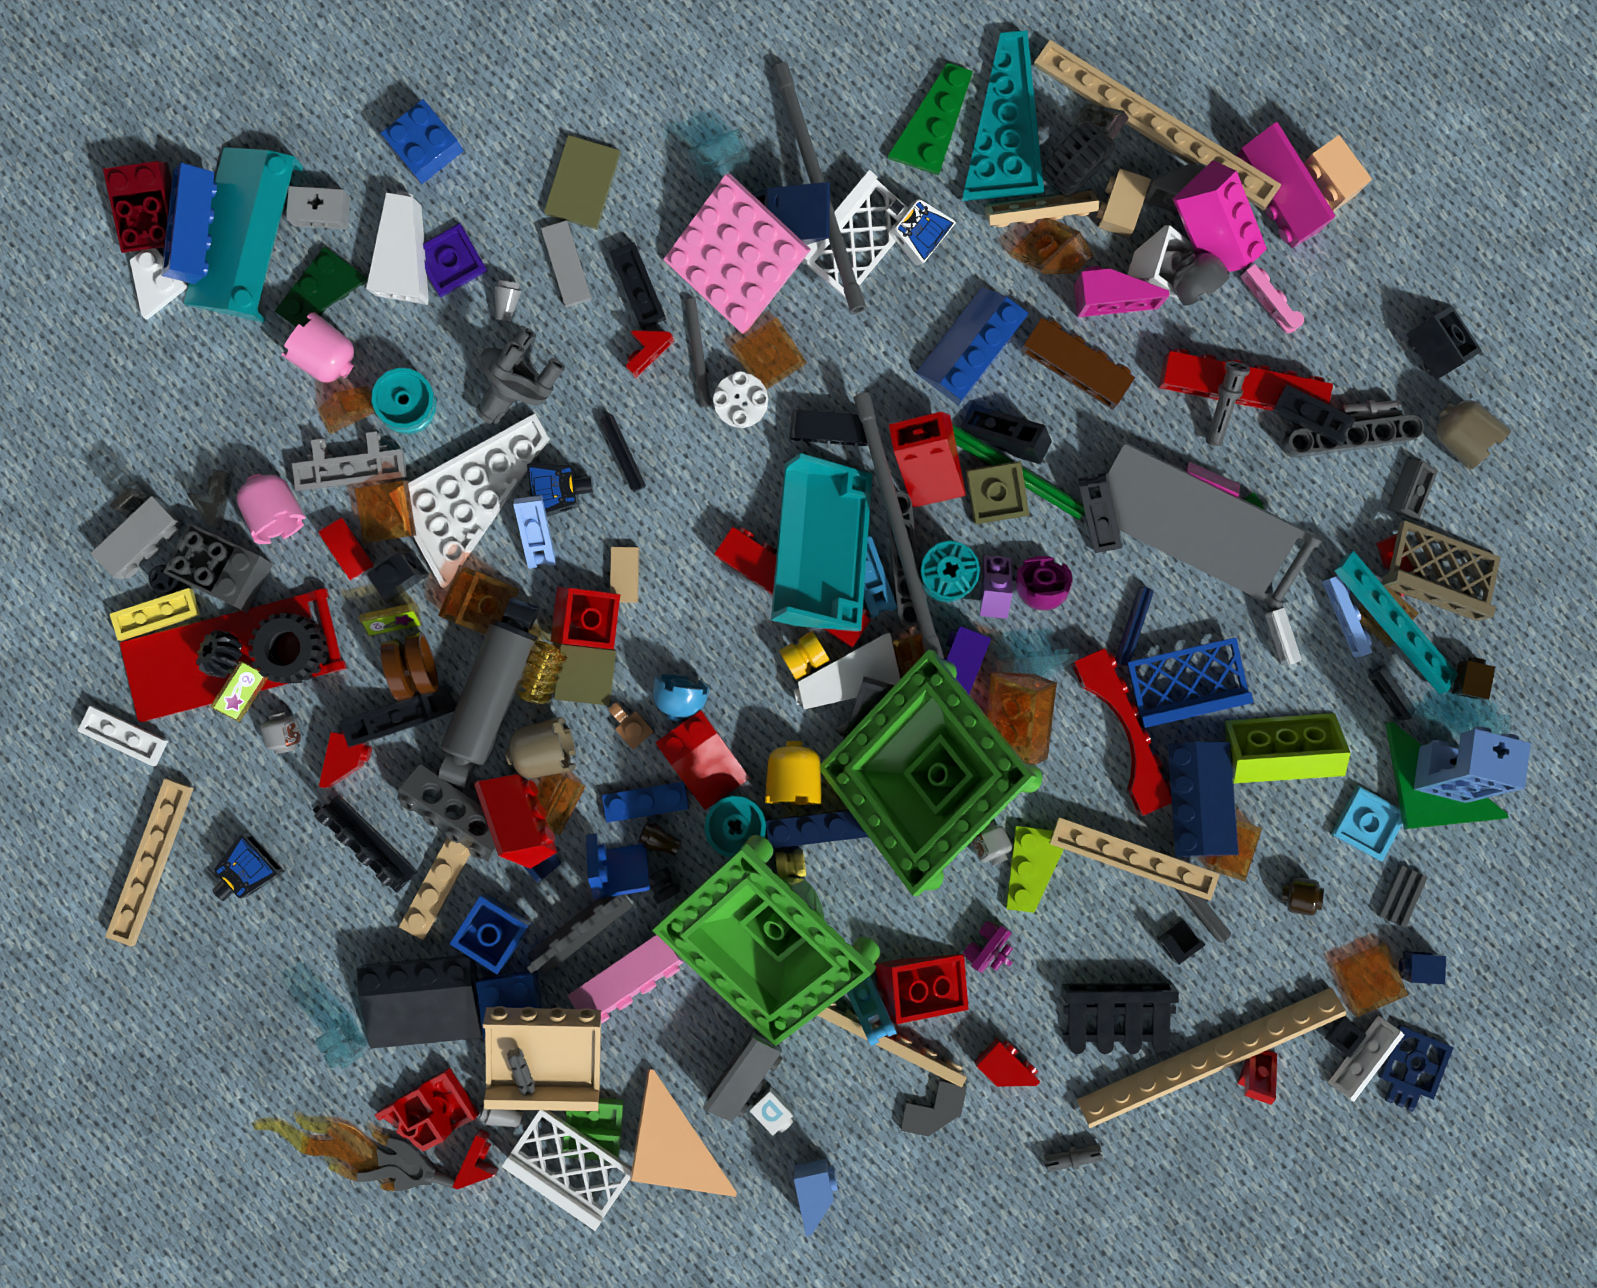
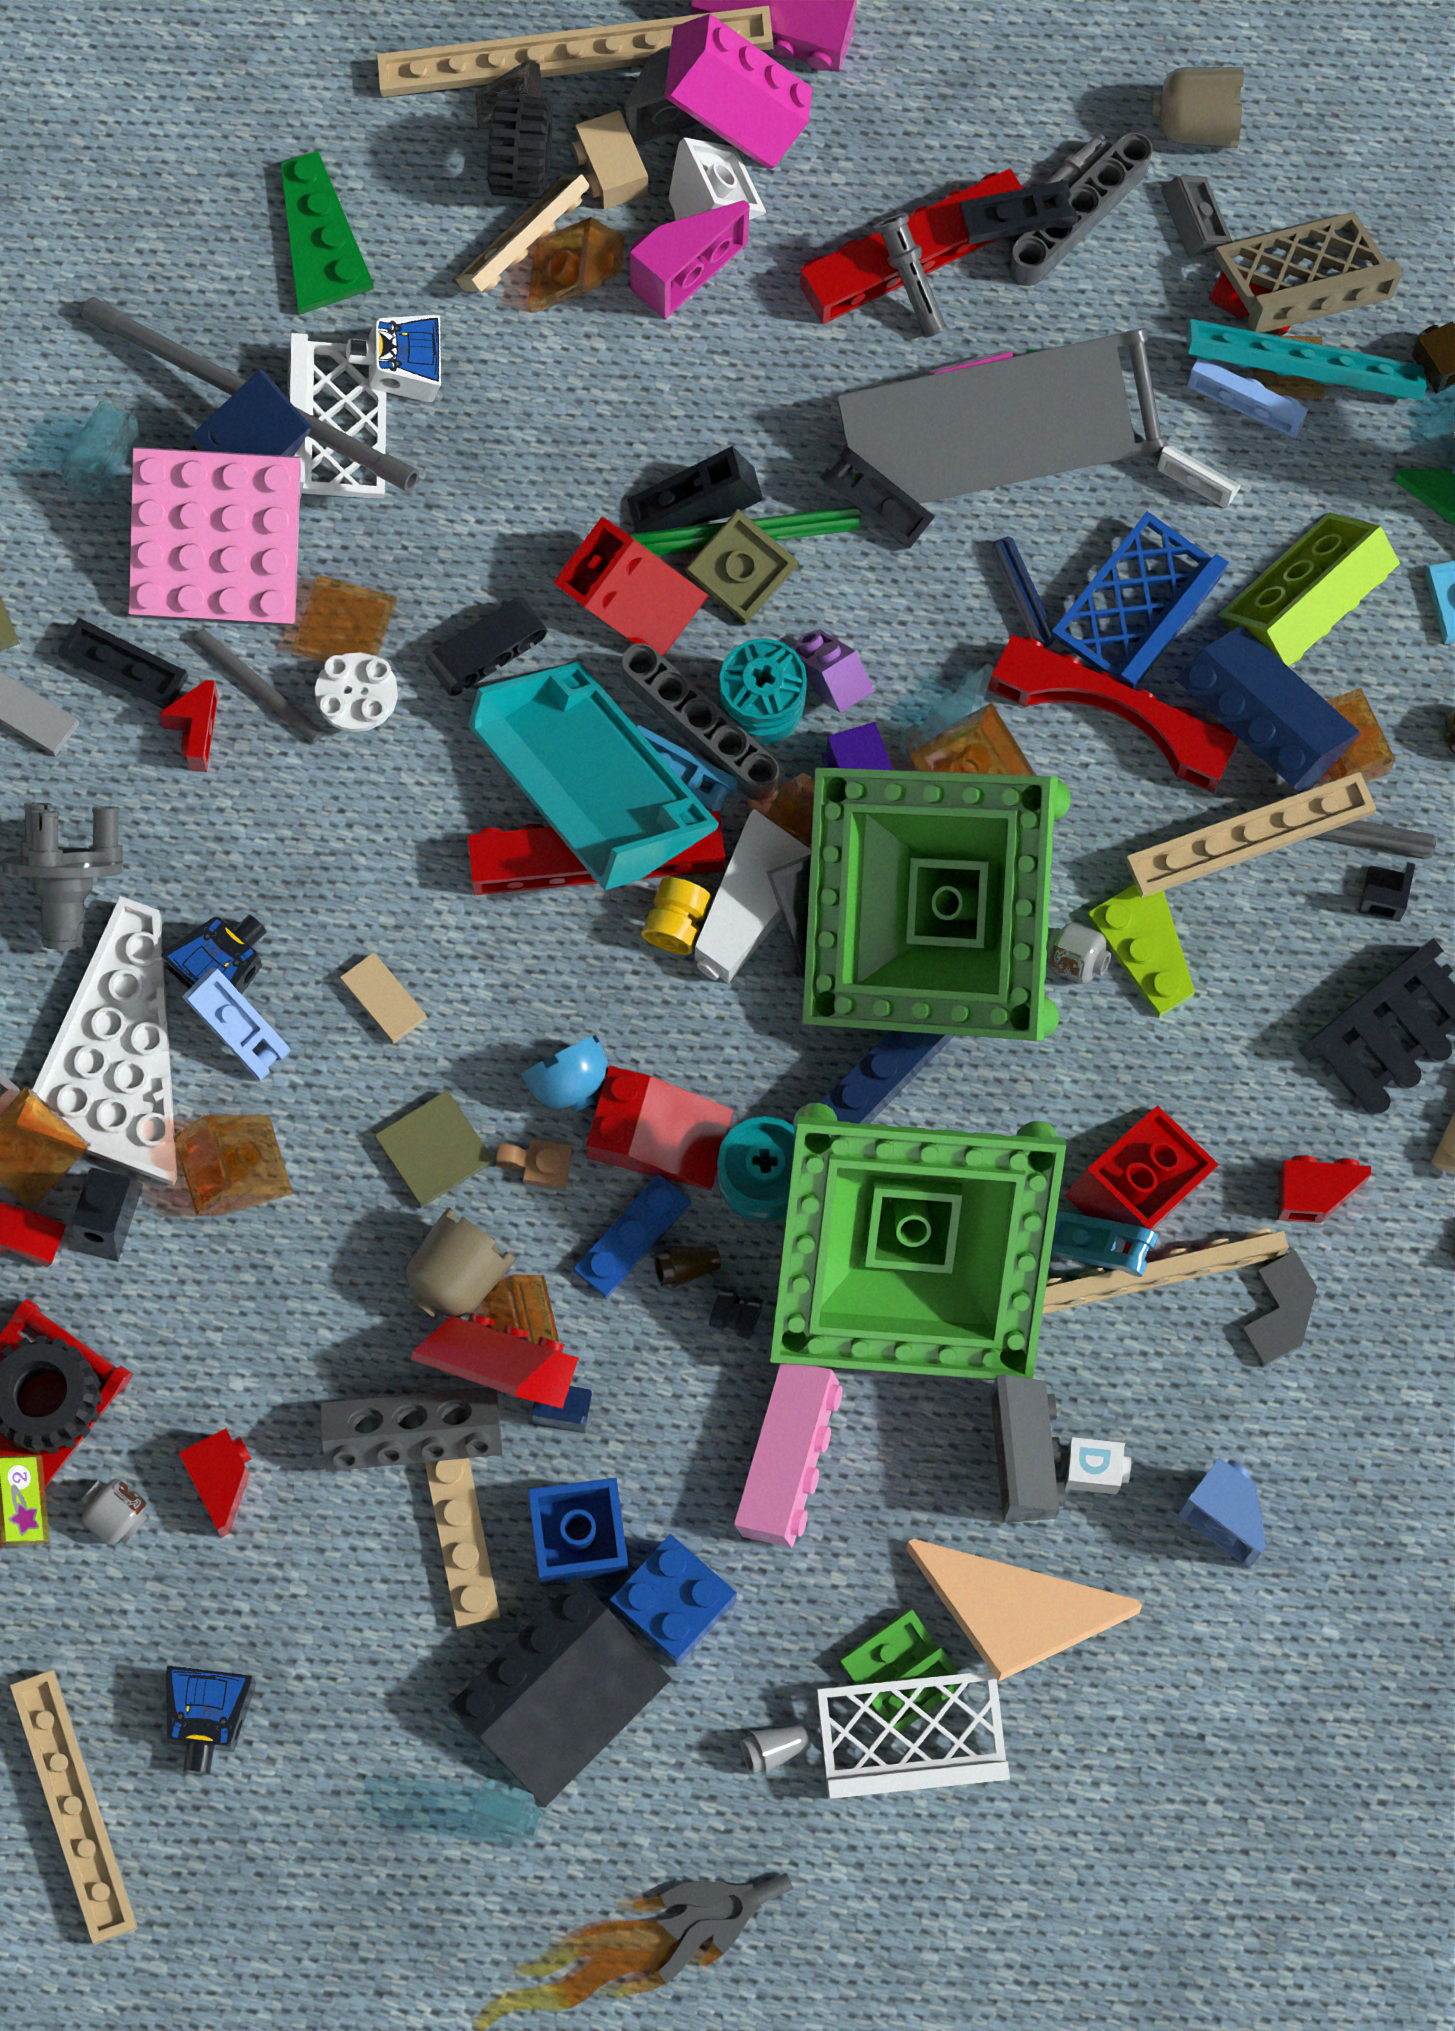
camera: 45 degrees left, 15 degrees down
(367, 844) = (331, 1561): black fence -> none
(391, 619) = (140, 1270): slope -> none
(396, 717) = (248, 1371): black slope -> none
(409, 666) = (212, 1295): reddish brown wheel -> none
(427, 1110) = (680, 1817): red slope -> none
(473, 1169) = (795, 1841): red slope -> none
(488, 692) = (335, 1251): dark grey piece -> none
(521, 1071) = (756, 1657): dark grey axle -> none
(544, 674) = (381, 1179): clear yellow piece -> none
(559, 1050) = (766, 1620): tan panel -> none
(577, 932) = (682, 1446): dark grey fence -> none
(585, 618) = (377, 1078): red slope -> none
(616, 869) = (667, 1333): blue bracket -> none
(622, 453) = (263, 863): black axle -> none
(793, 775) = (783, 1057): yellow cylinder -> none
(867, 417) = (523, 594): dark grey piece -> none
(972, 344) = (571, 433): blue slope -> none
(982, 957) = (1178, 1053): magenta hips -> none
(1007, 139) = (420, 193): teal wing -> none
(1043, 583) = (881, 621): magenta cylinder -> none
(1078, 363) = (709, 361): reddish brown brick -> none
(1197, 276) = (762, 168): dark grey cylinder -> none
(1272, 299) = (865, 136): bright pink plate -> none
(1392, 693) = (1370, 442): black slope -> none
(1443, 343) = (1090, 43): black slope -> none

